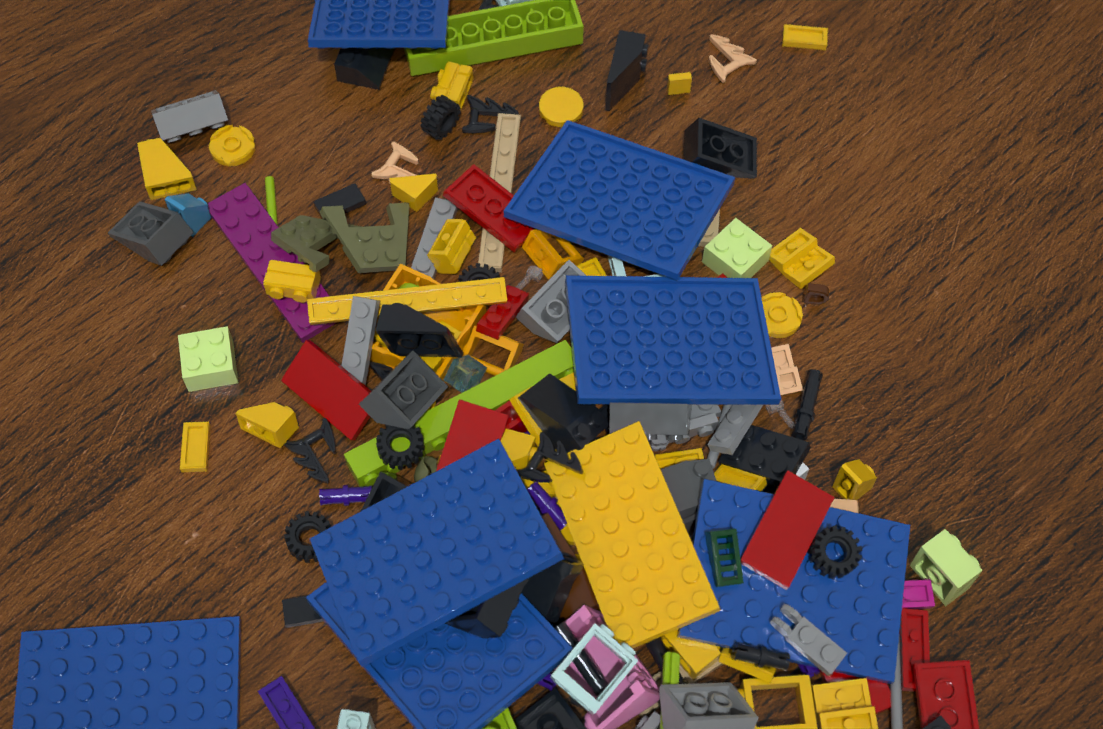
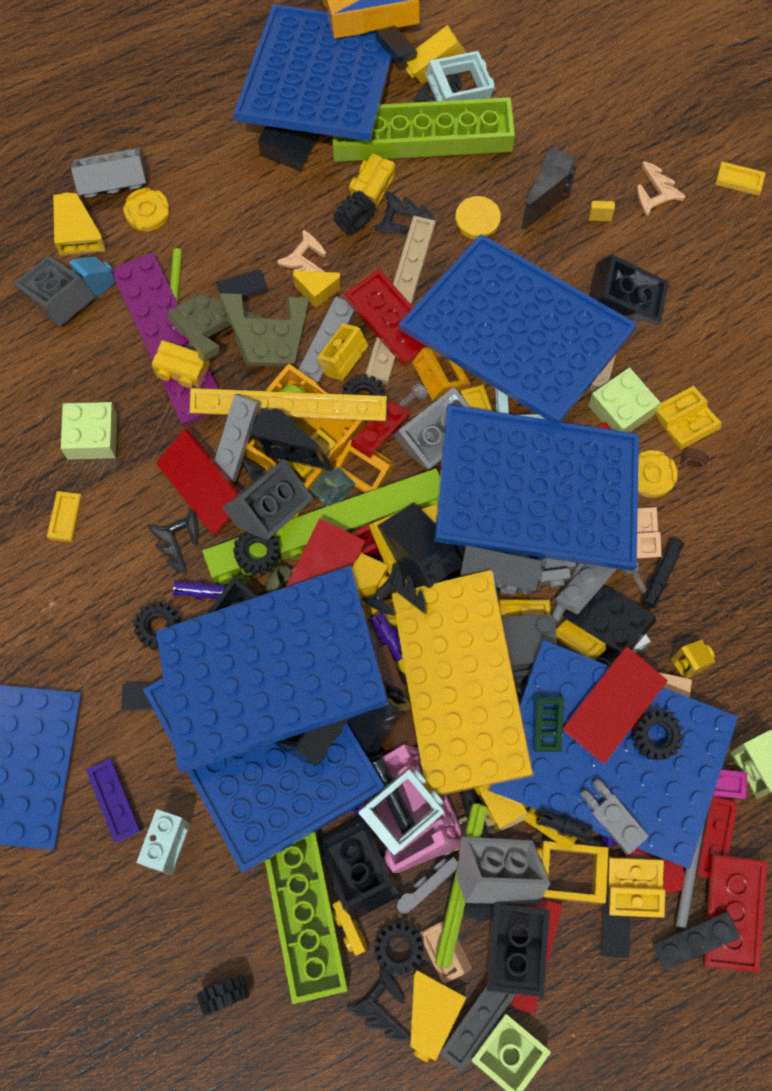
camera: 10 degrees right, 10 degrees up
(269, 422) = (137, 505): yellow slope -> none

